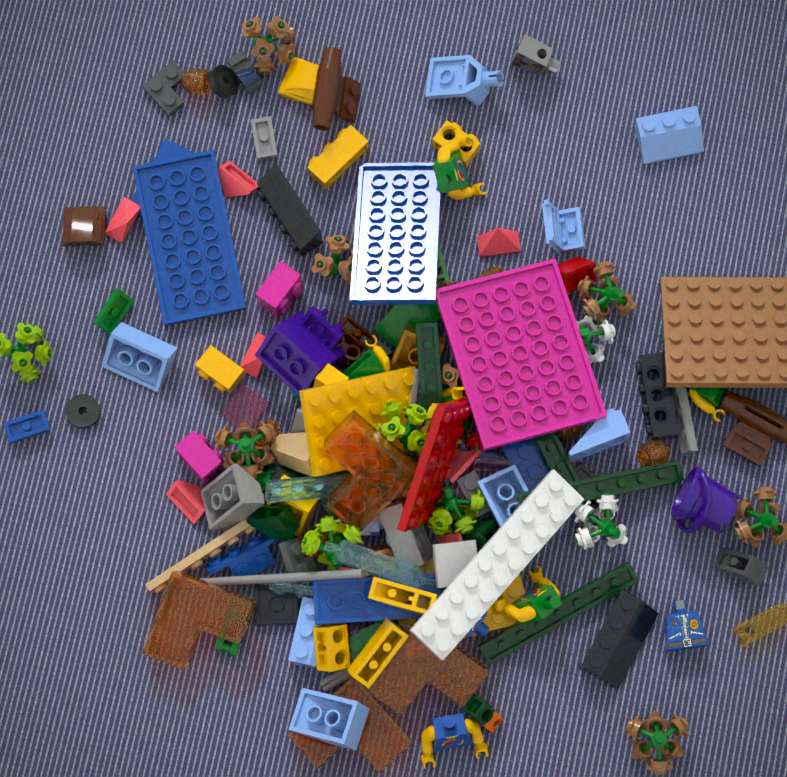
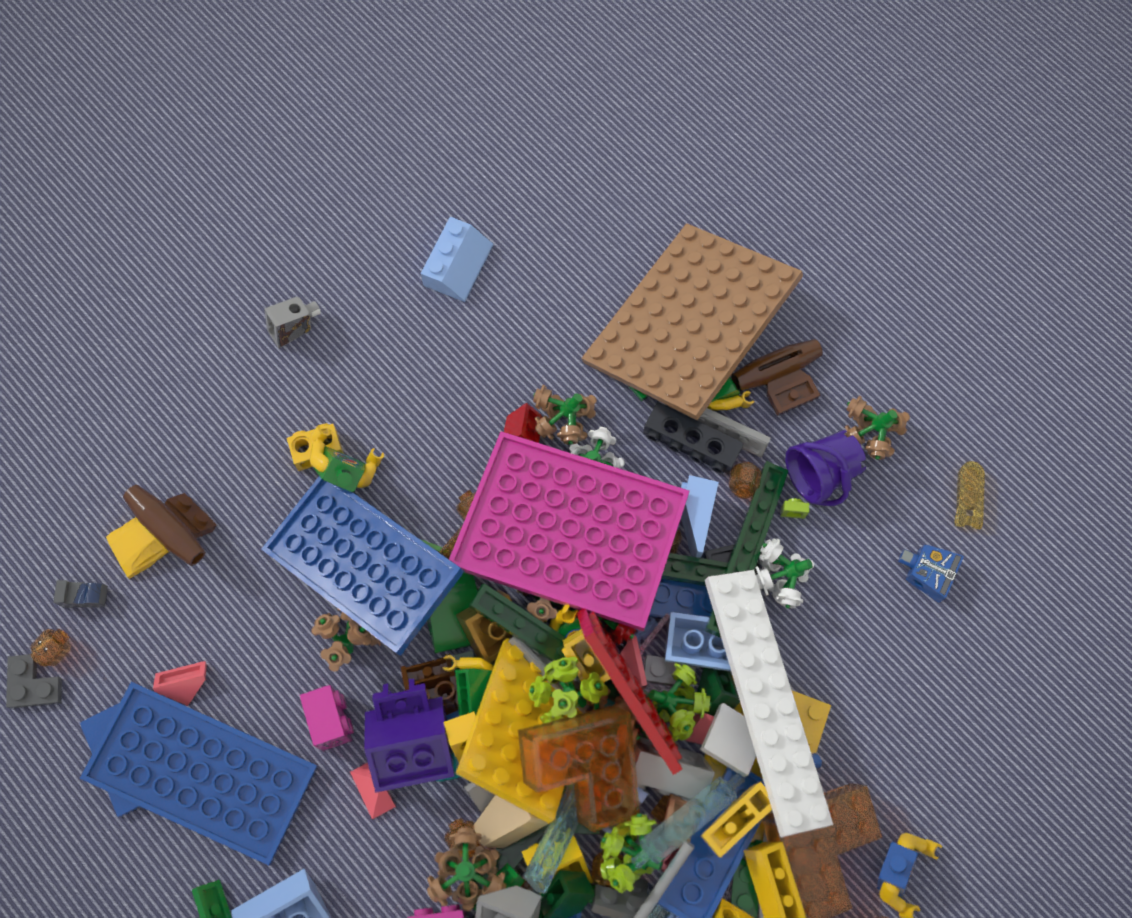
camera: 60 degrees left, 5 degrees down
(84, 226) = (99, 876): reddish brown slope -> none
(123, 220) = (126, 829): coral slope -> none
(220, 370) = (360, 839): yellow brick -> none
(223, 81) = (71, 622): pearl dark grey piece -> none
(244, 407) = (417, 841): clear pink piece -> none
(264, 43) = (70, 554): medium nougat plant -> none
(264, 138) = (161, 623): light grey plate -> none
(289, 211) = (254, 650): black slope -> none
(337, 156) = (238, 565): yellow brick -> none
(460, 78) = (256, 397): light blue plate -> none
(482, 713) = (898, 821): dark green leg -> none
(498, 242) = (439, 477): coral slope -> none
(535, 603) = (822, 688): torso -> none
(563, 228) = (473, 407): light blue plate -> none
(572, 606) = (840, 678): dark green plate -> none
(619, 639) = (901, 637): black slope -> none
(658, 503) = (794, 508): none -> lime plate
(669, 747) = (1038, 664): medium nougat plant -> none
(741, 566) = (903, 477): dark grey slope -> none

